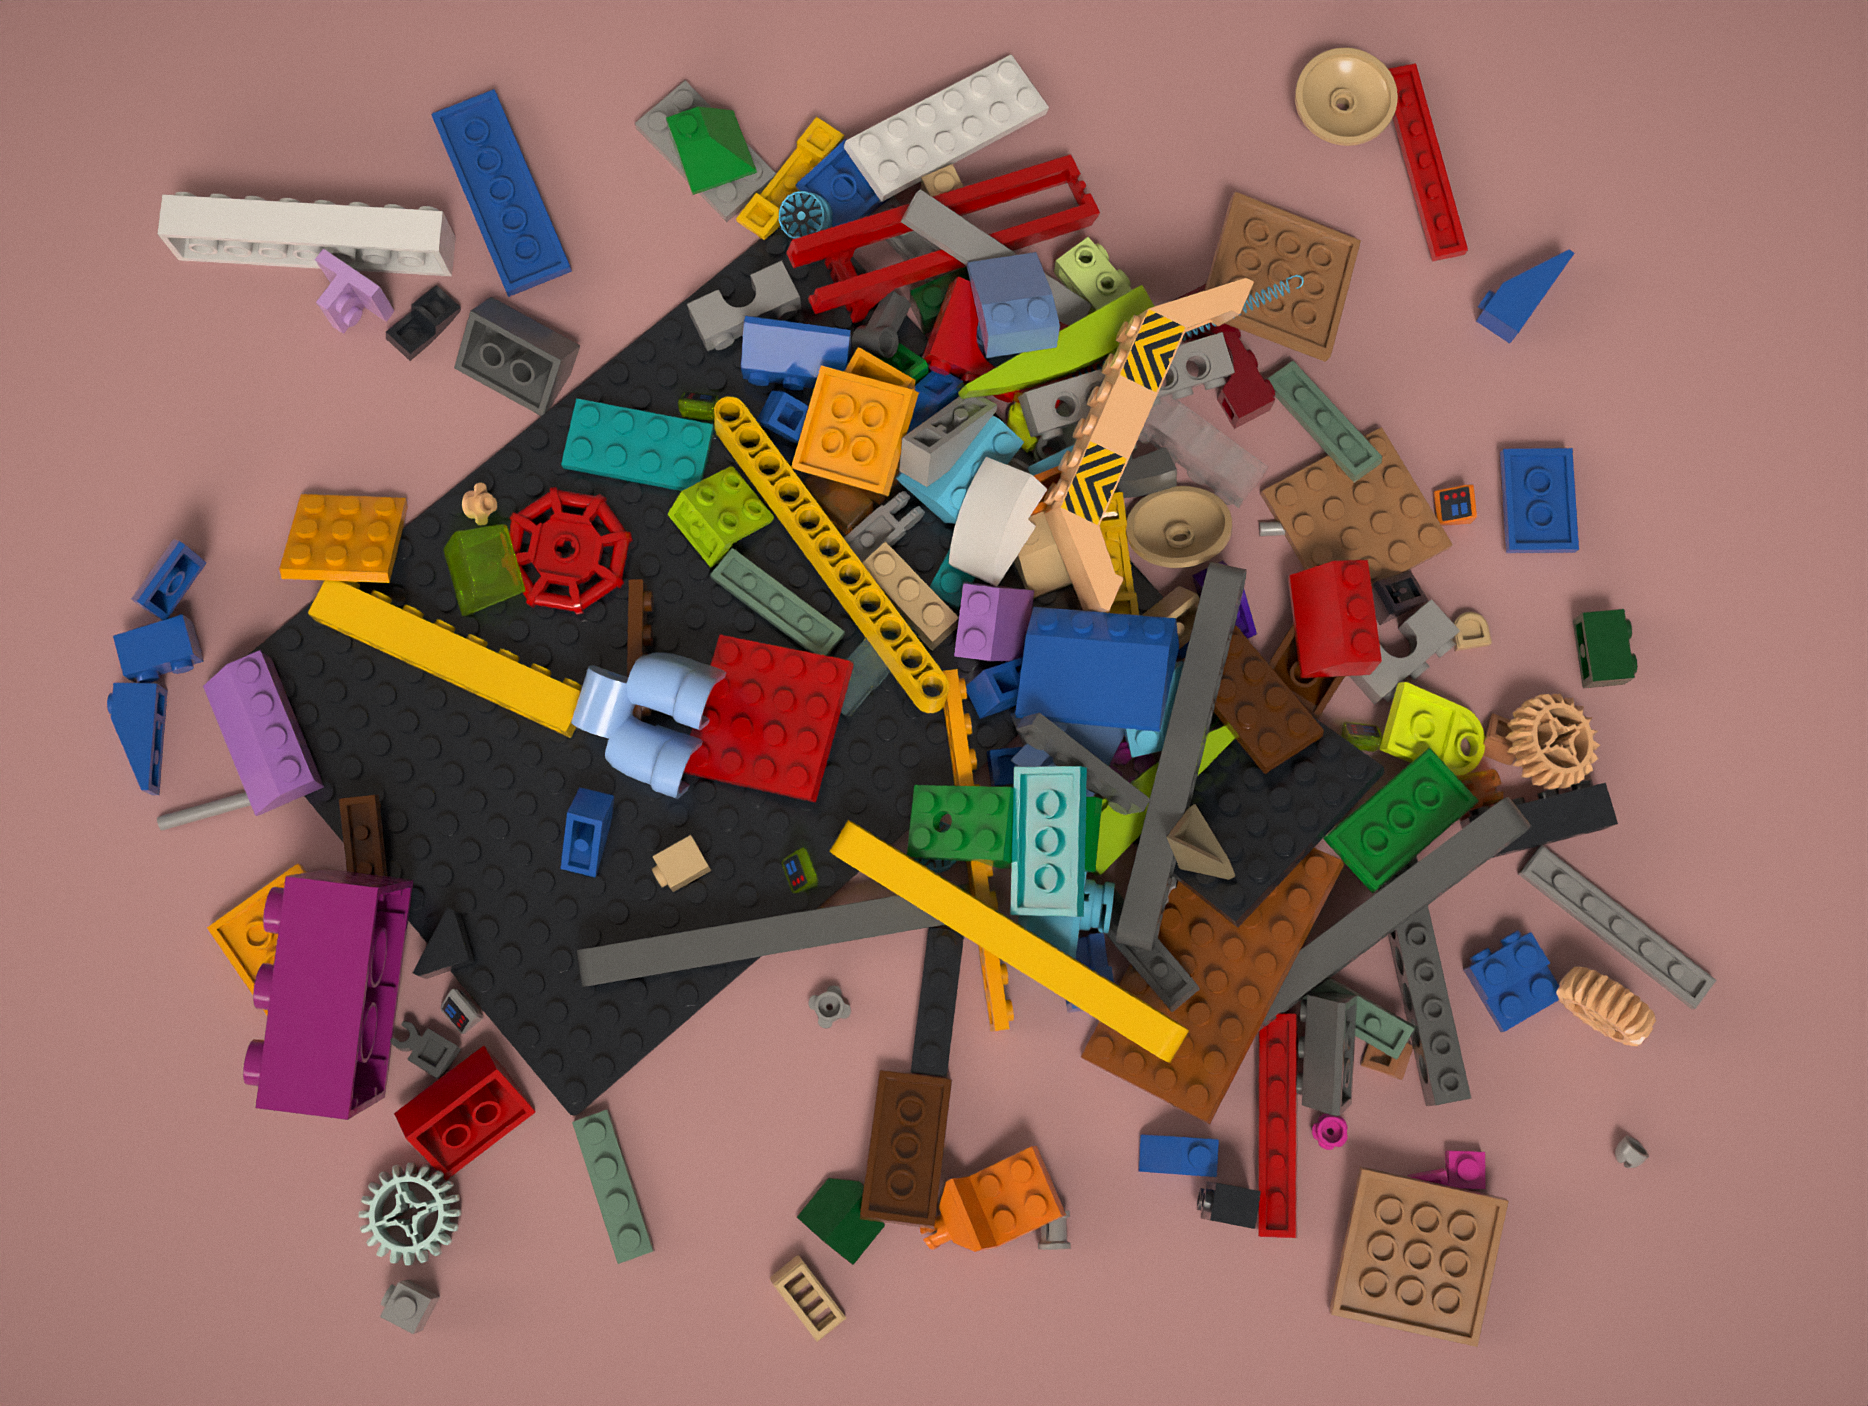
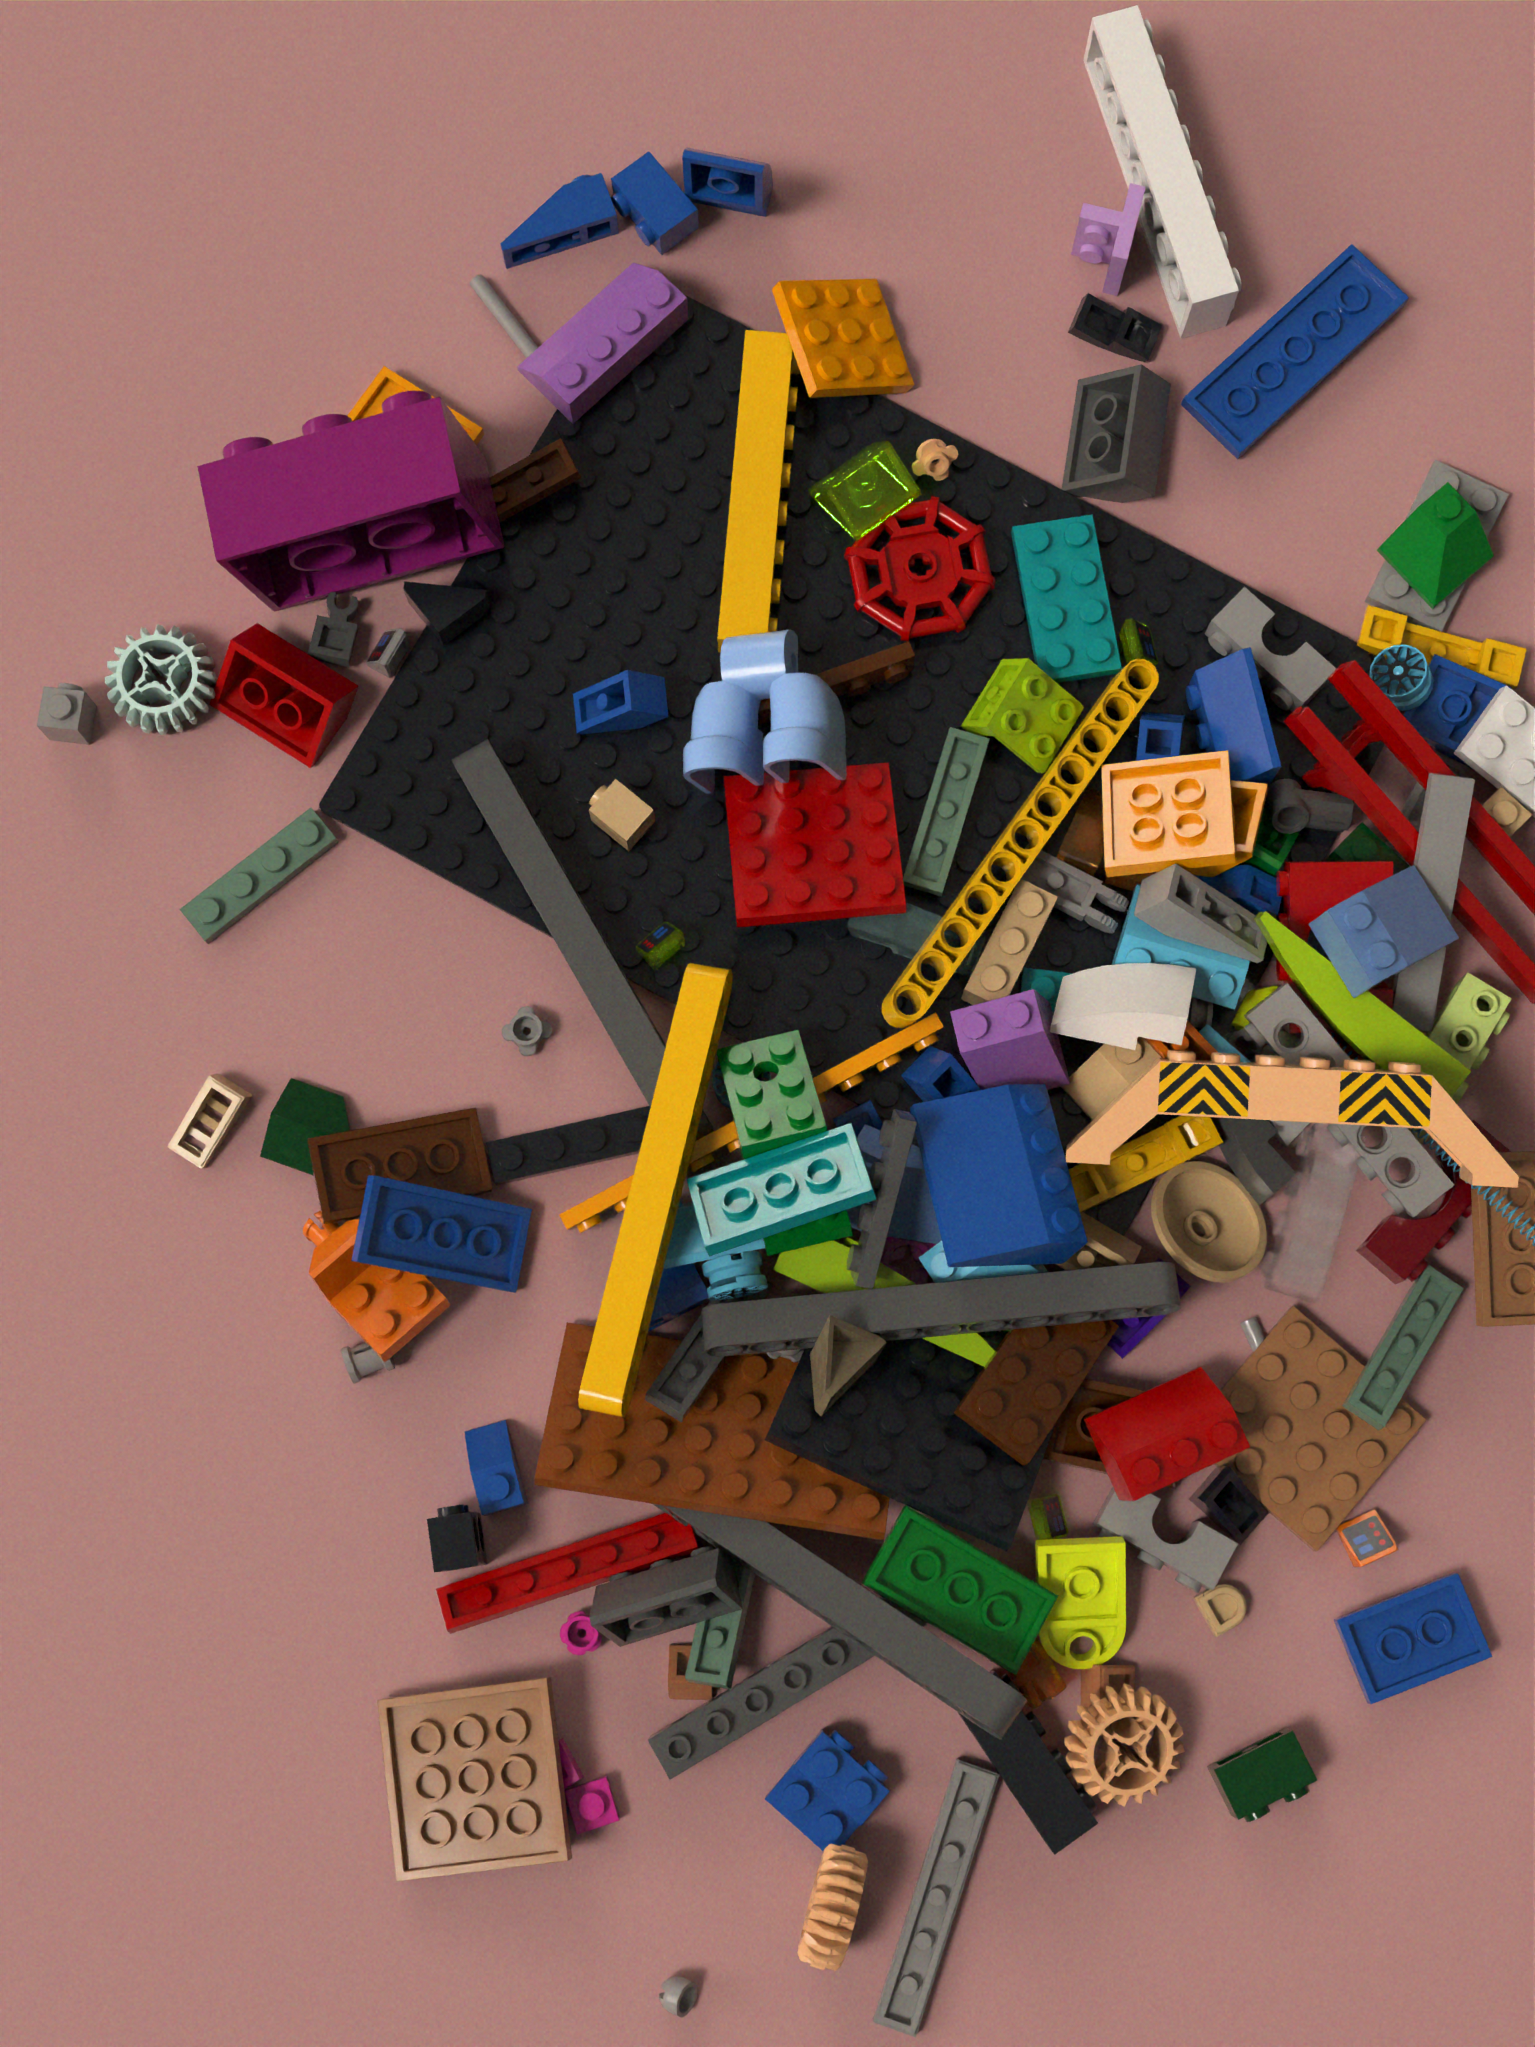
camera: 75 degrees right, 0 degrees up
(978, 1132) = (441, 1234): none -> blue plate

